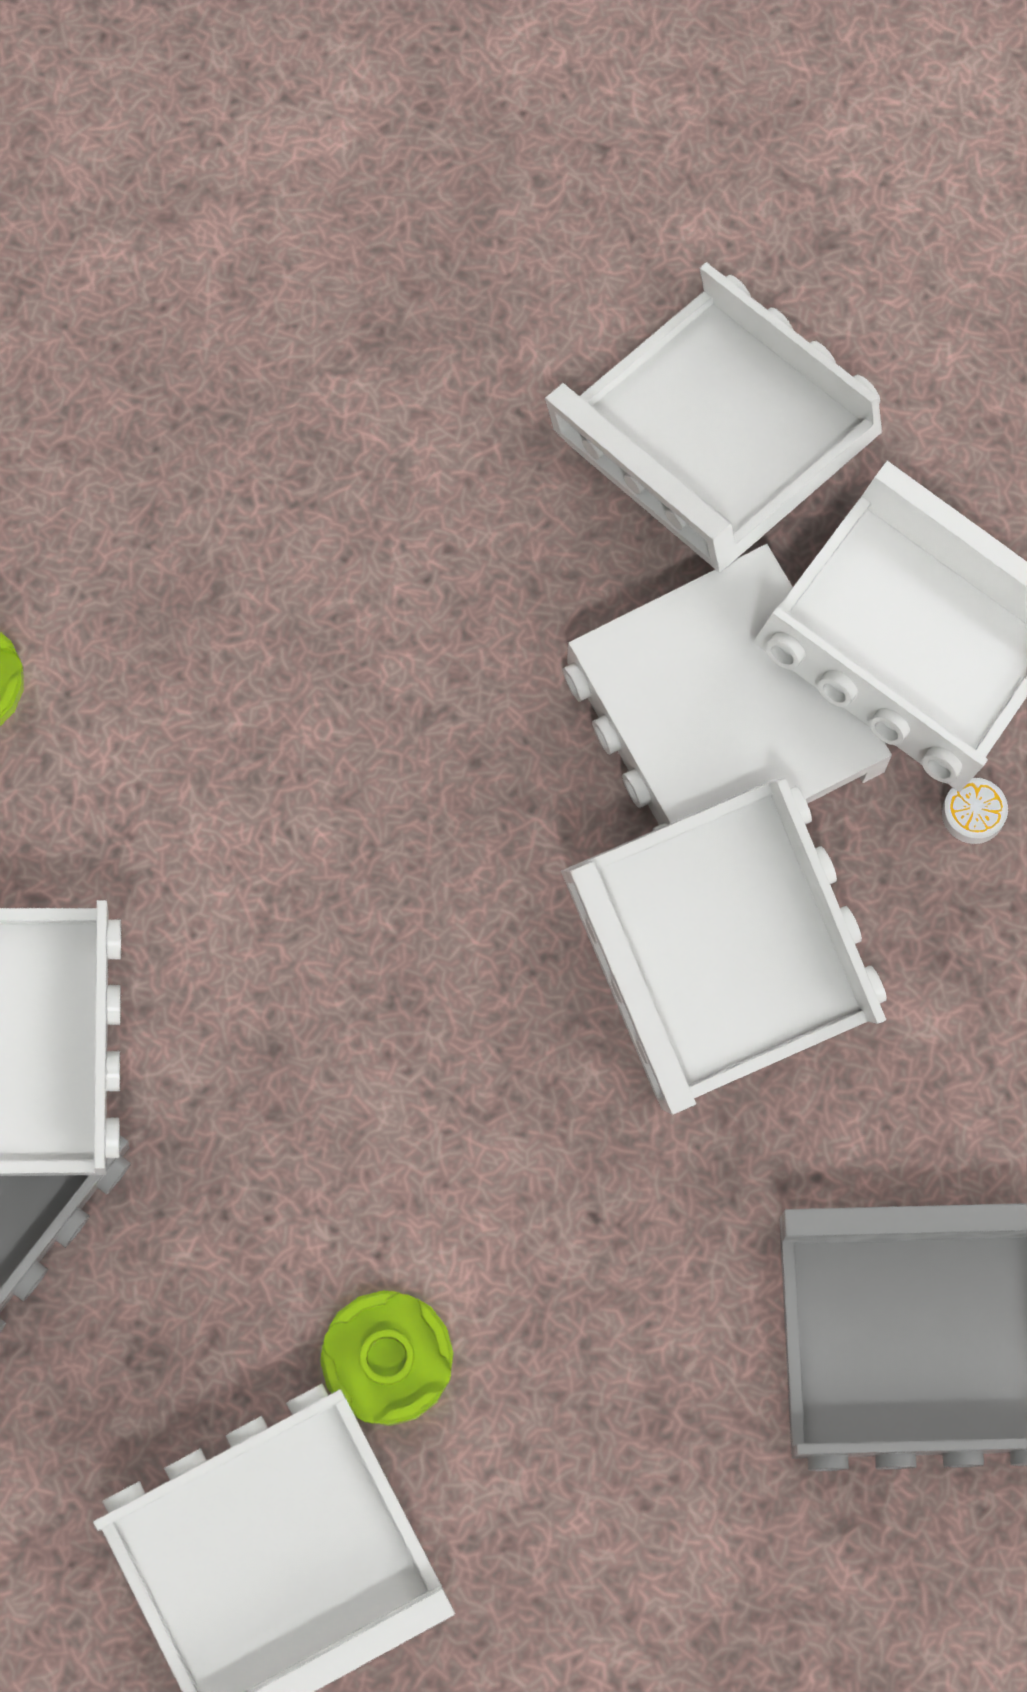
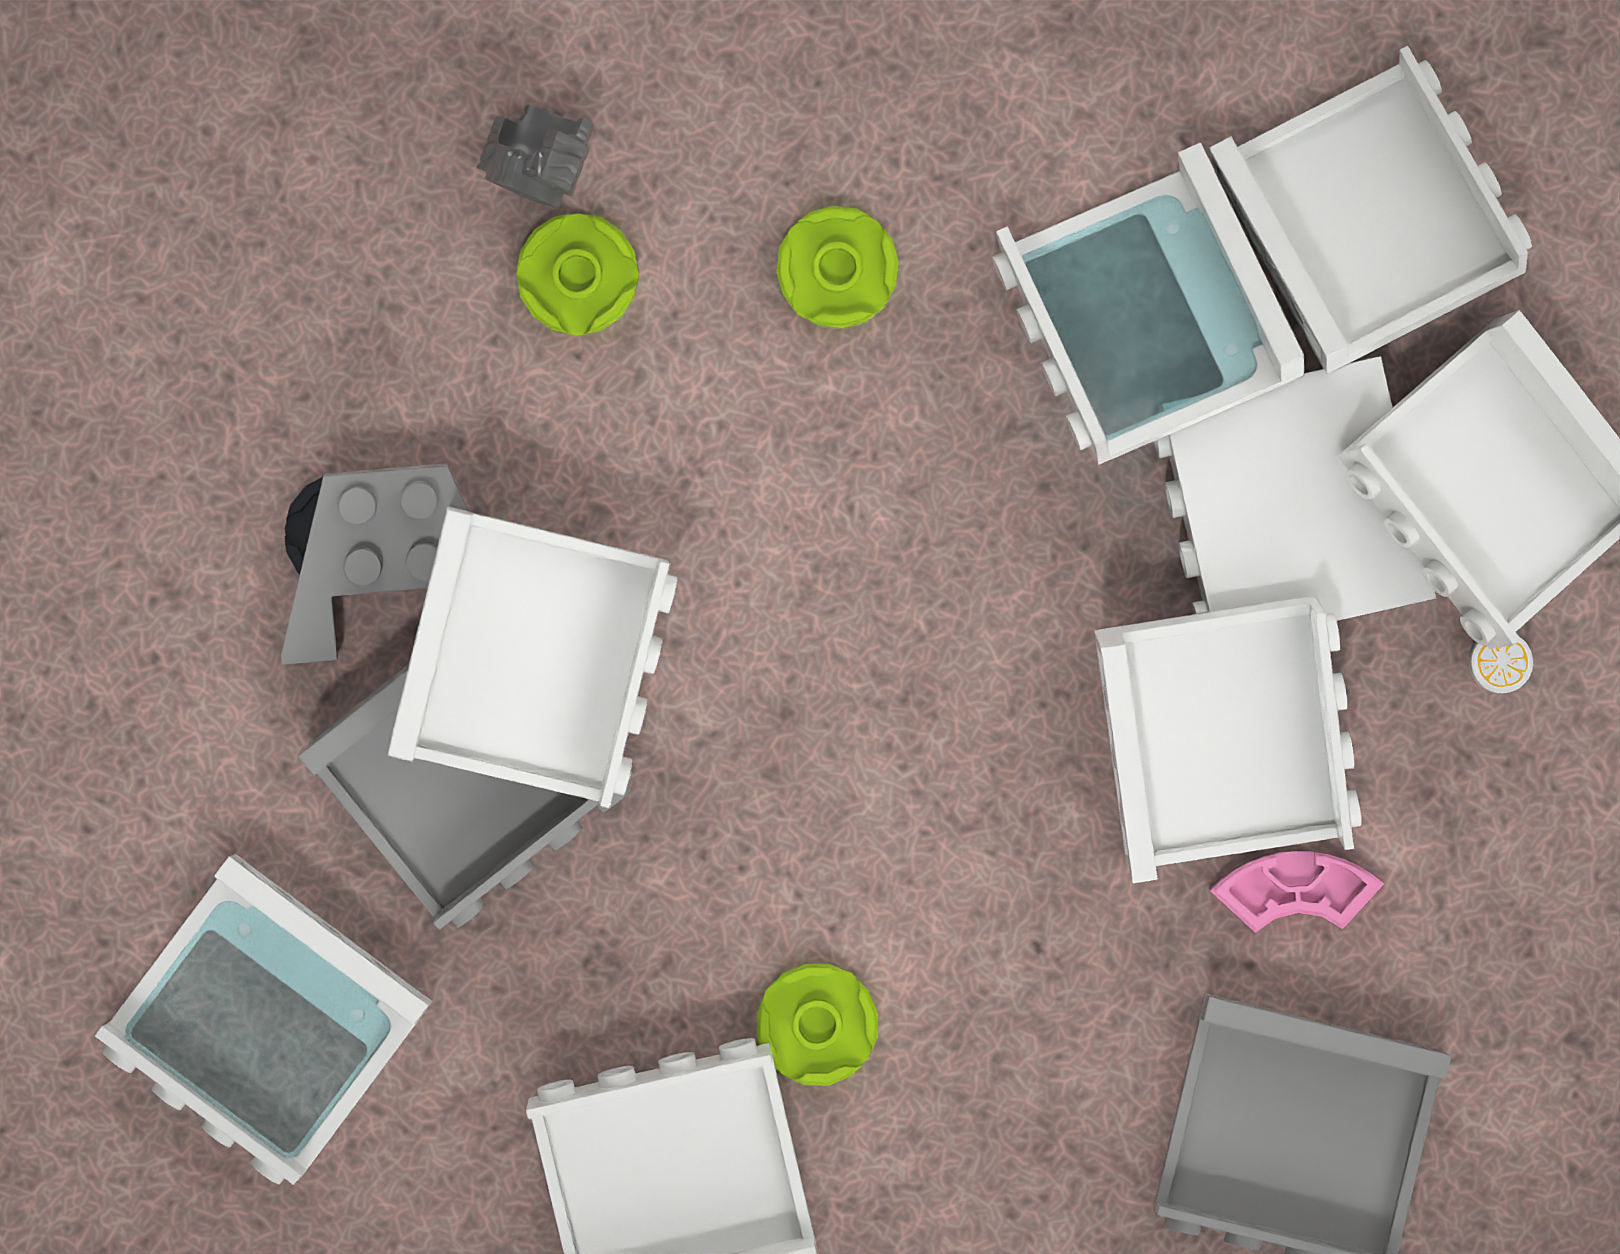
camera: 15 degrees right, 15 degrees up
(223, 629) = (836, 292): none -> lime tile
(535, 561) = (1150, 311): none -> clear light blue panel
(840, 1082) = (1296, 884): none -> bright pink tile

